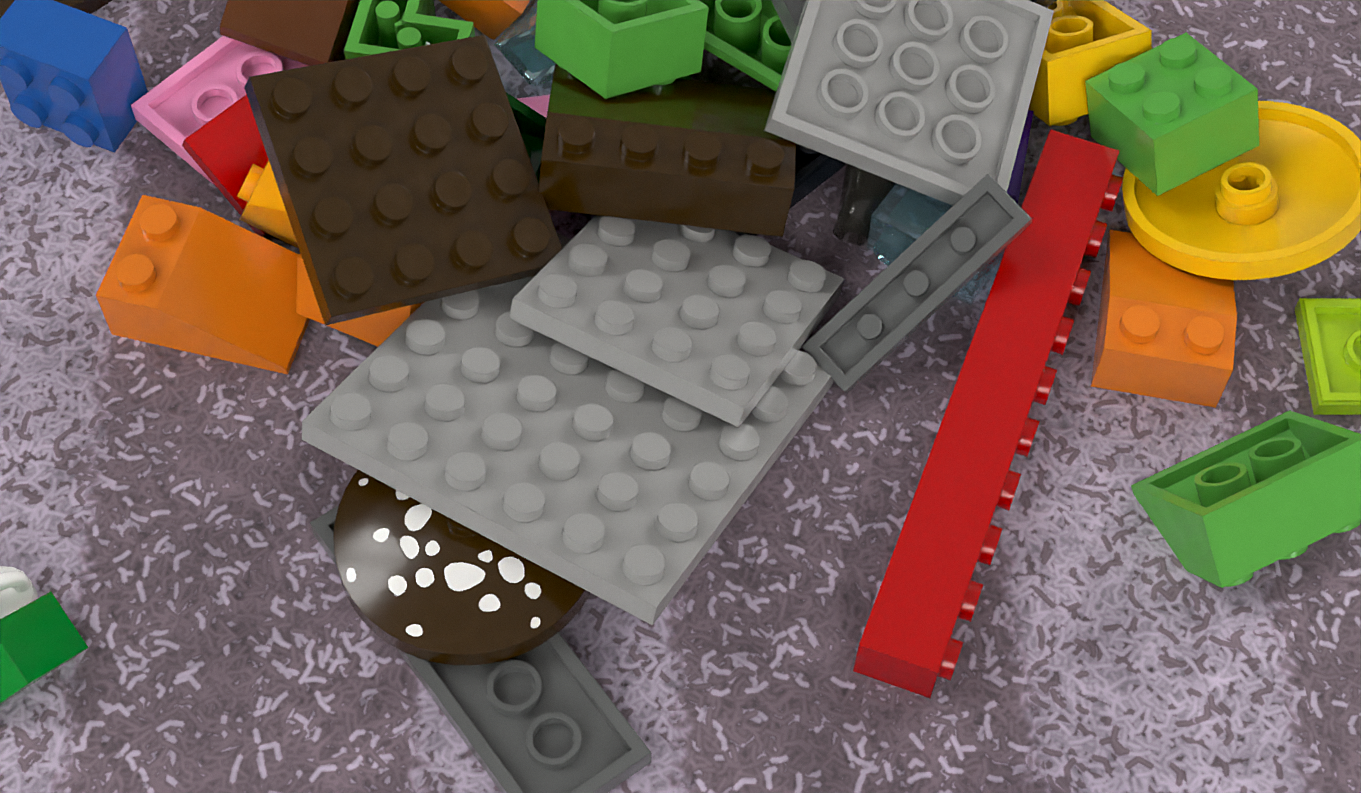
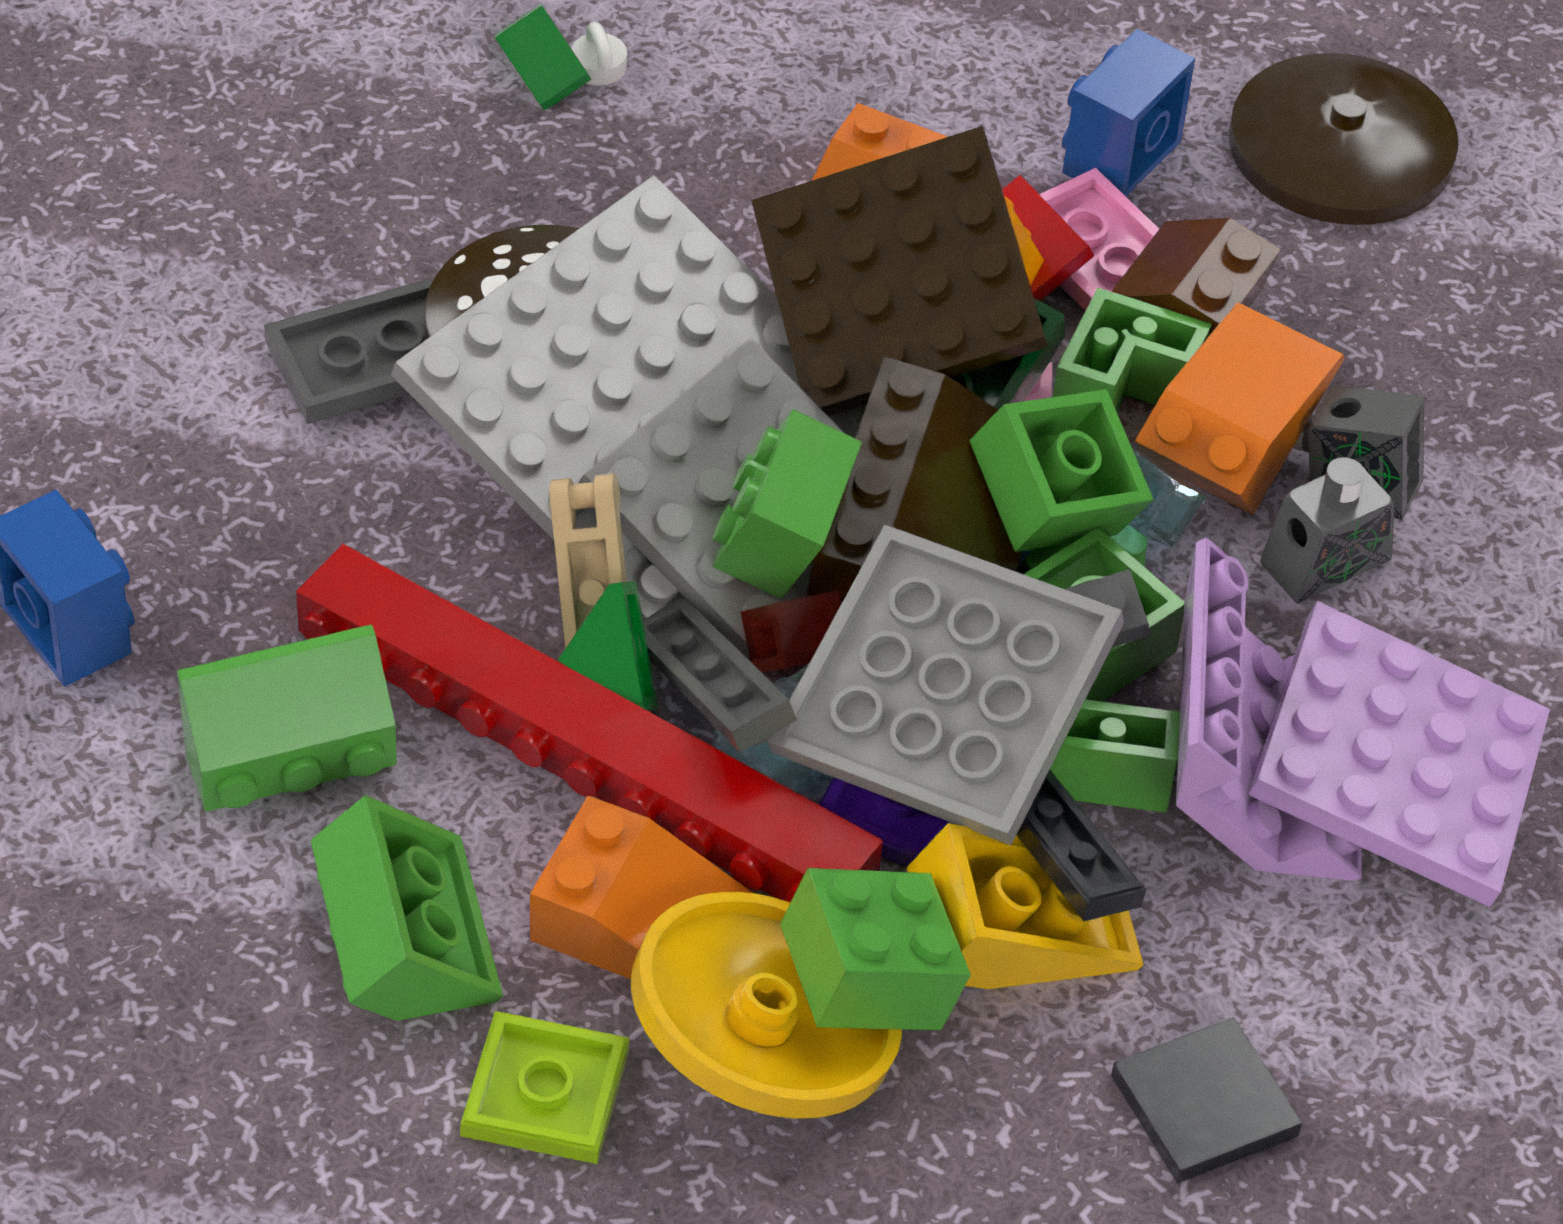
camera: 100 degrees right, 10 degrees down
(741, 221) = (784, 503): none -> bright green brick
(821, 405) = (586, 556): none -> tan plate
(833, 235) = (788, 630): none -> clear red brick
(905, 378) = (614, 646): none -> green slope
(1098, 644) = (287, 718): none -> bright green slope

